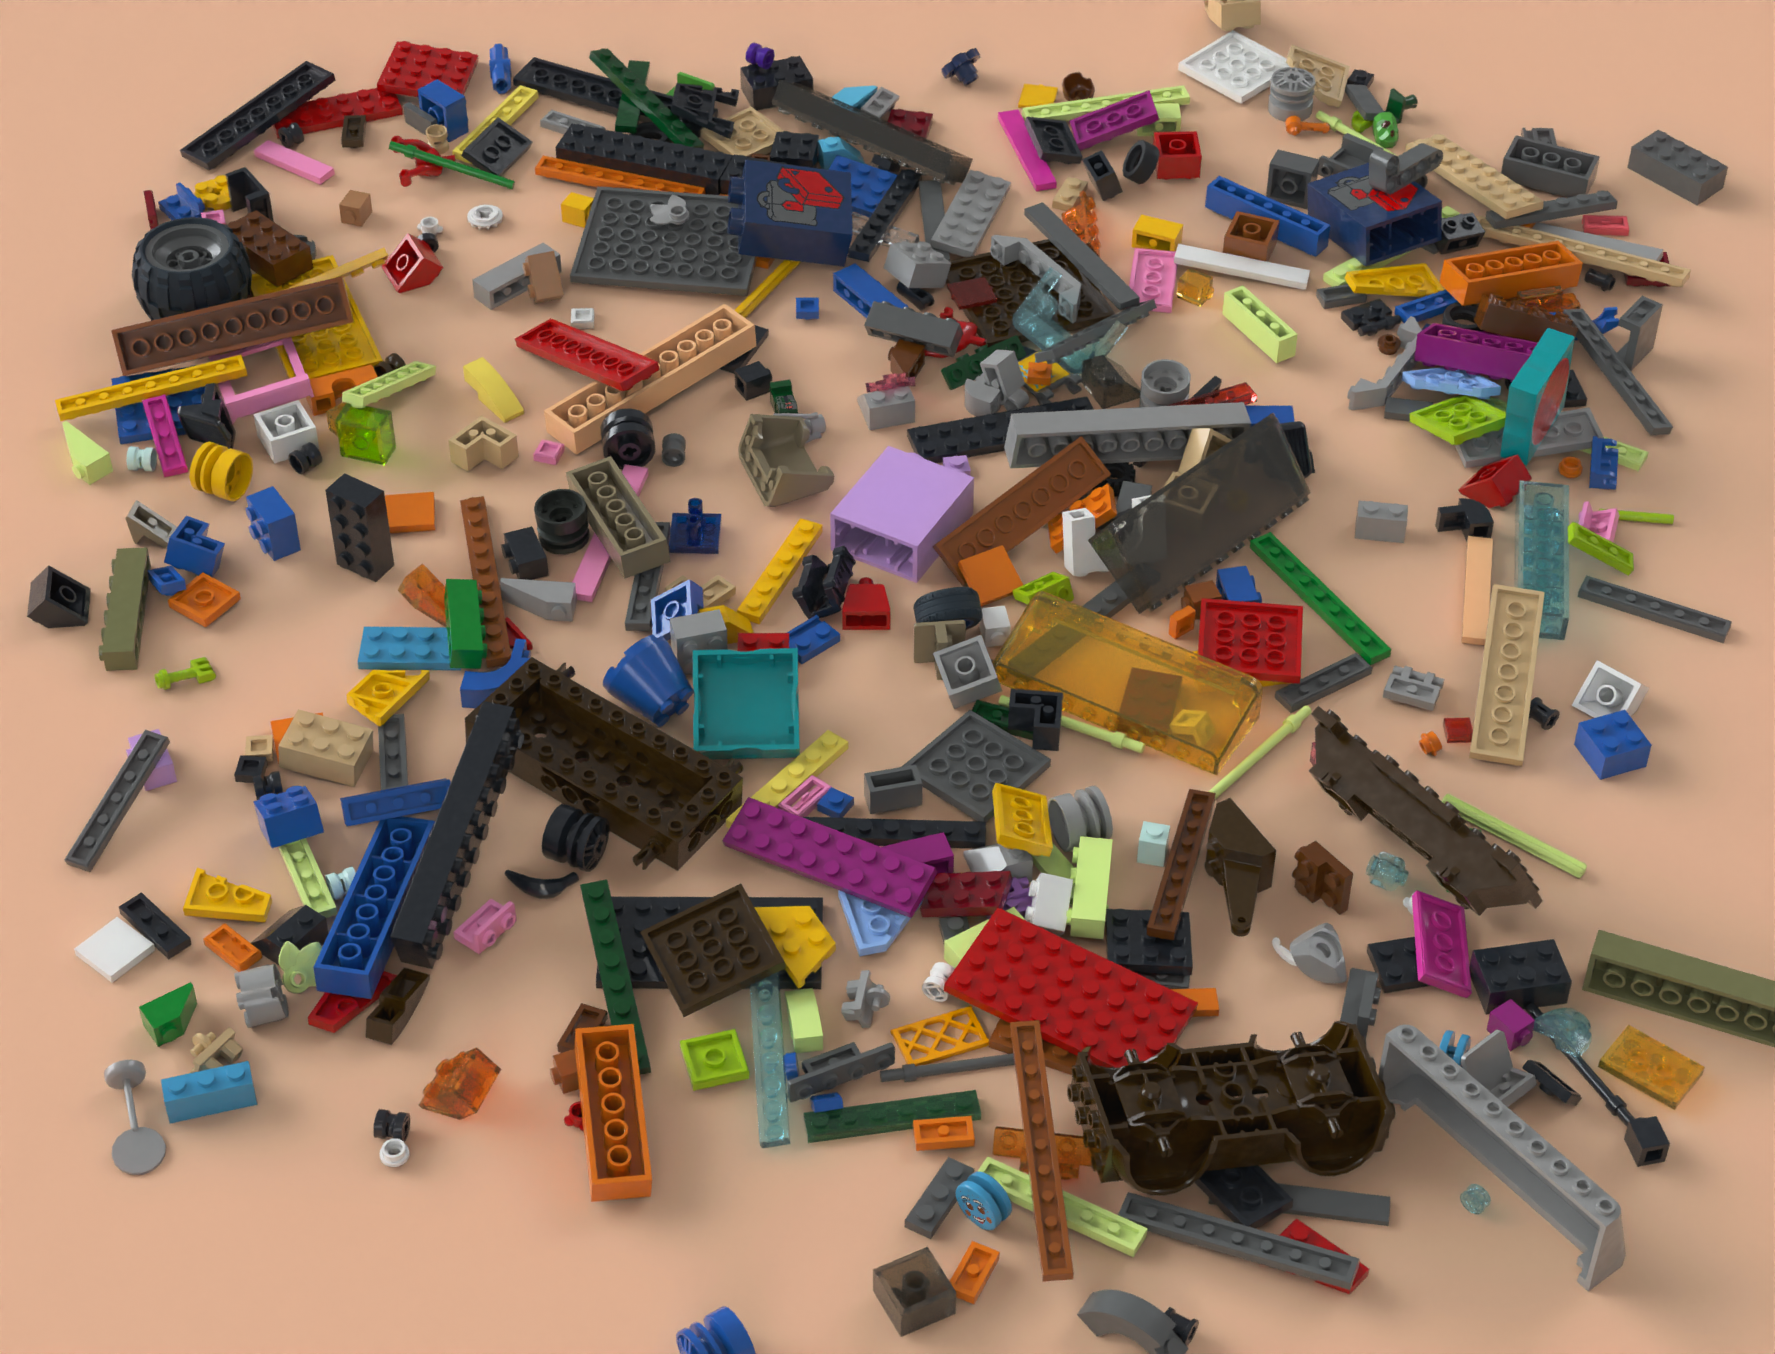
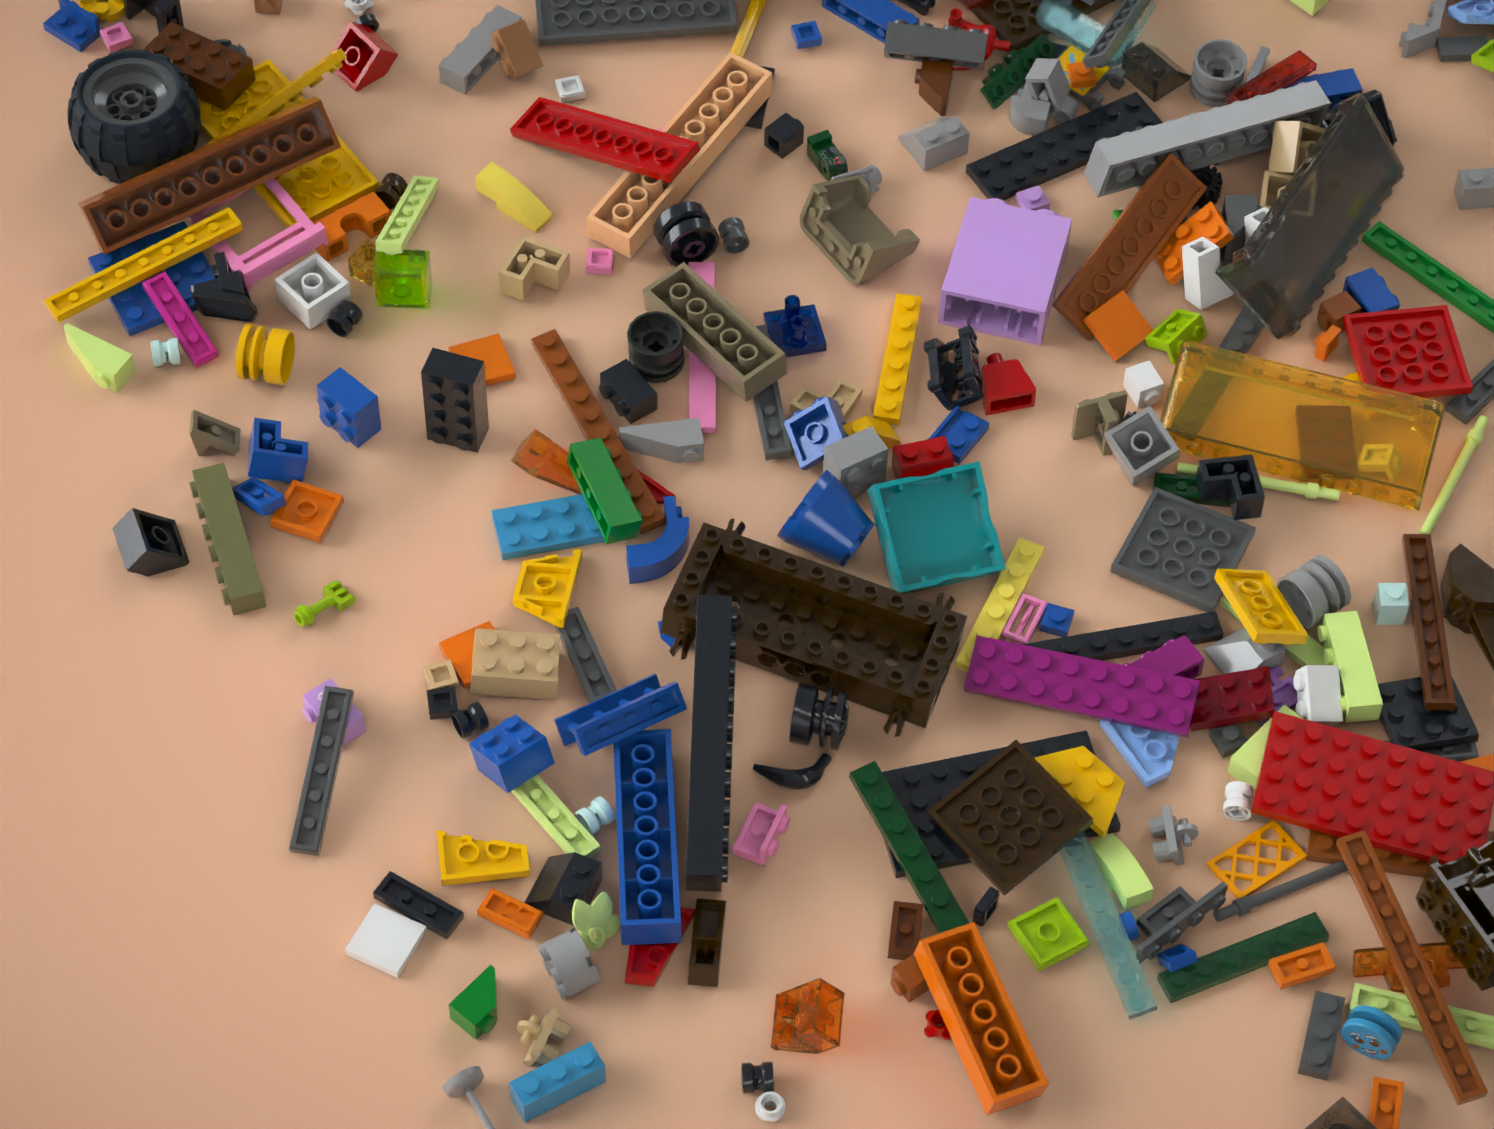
camera: 15 degrees left, 10 degrees up
(151, 209) = (42, 38): dark red tile -> none
(665, 1024) = (986, 906): none -> black tile
(891, 381) = (938, 114): clear pink plate -> none
(893, 789) = (1114, 594): dark grey brick -> none
(949, 605) = (1097, 378): black wheel -> none

